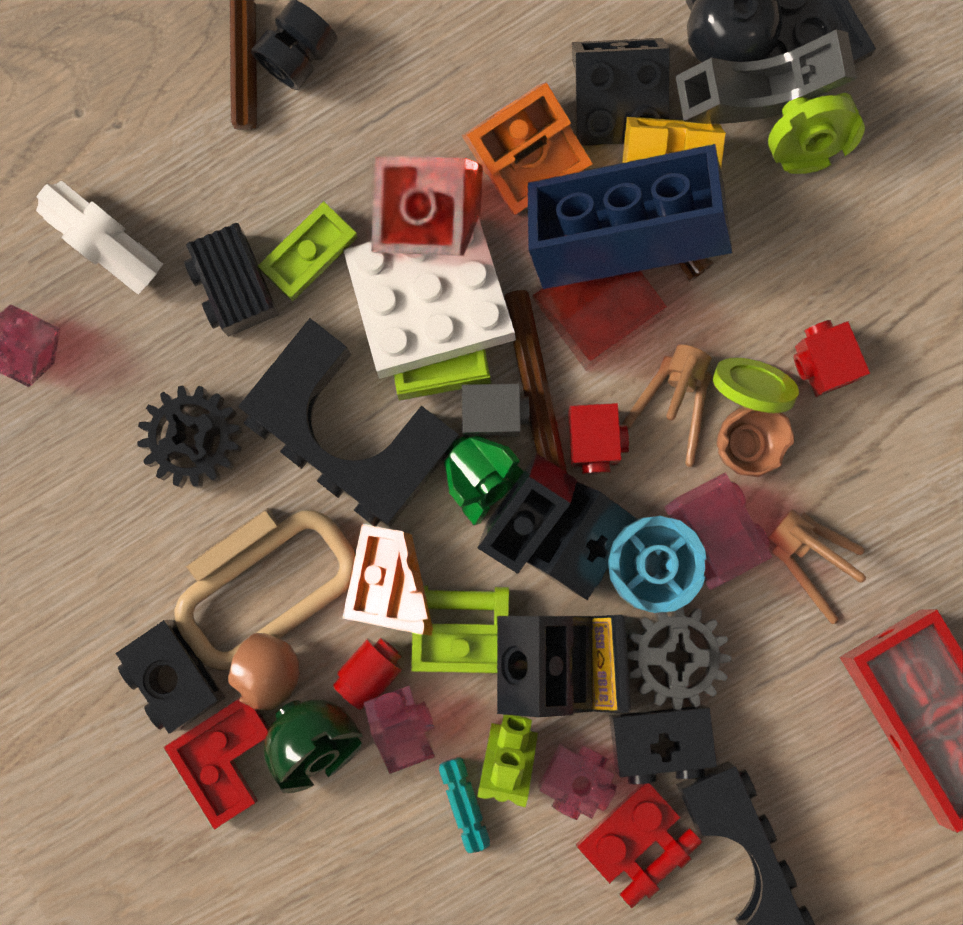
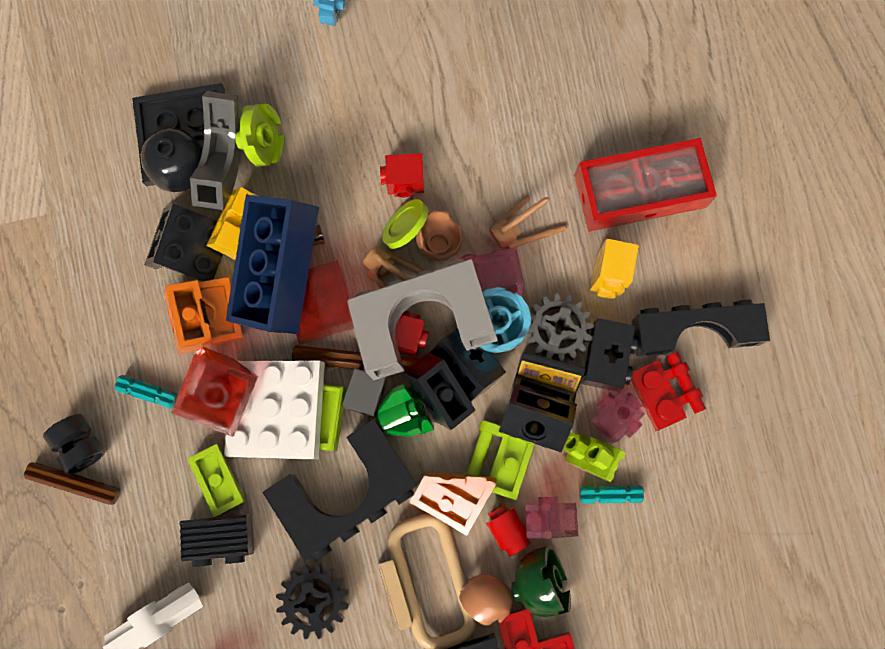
camera: 75 degrees left, 5 degrees down
(396, 112) = (145, 391): none -> teal axle
(608, 389) = (378, 312): none -> light grey arch
(792, 710) = (614, 268): none -> yellow brick

